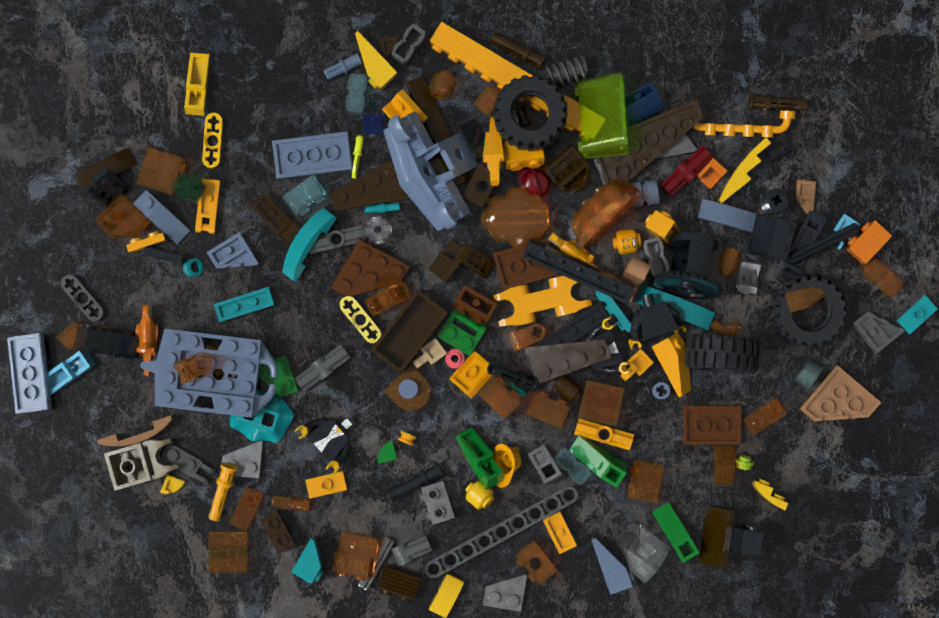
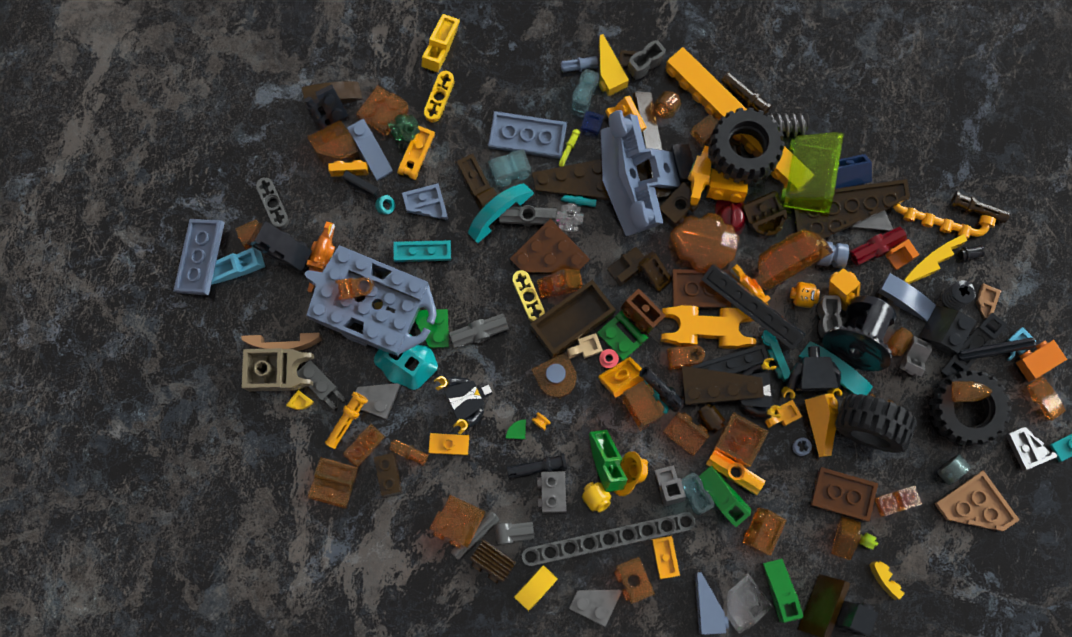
camera: 15 degrees right, 10 degrees down
(310, 563) = (409, 514): teal slope -> none
(635, 273) = (809, 321): medium nougat beam -> none

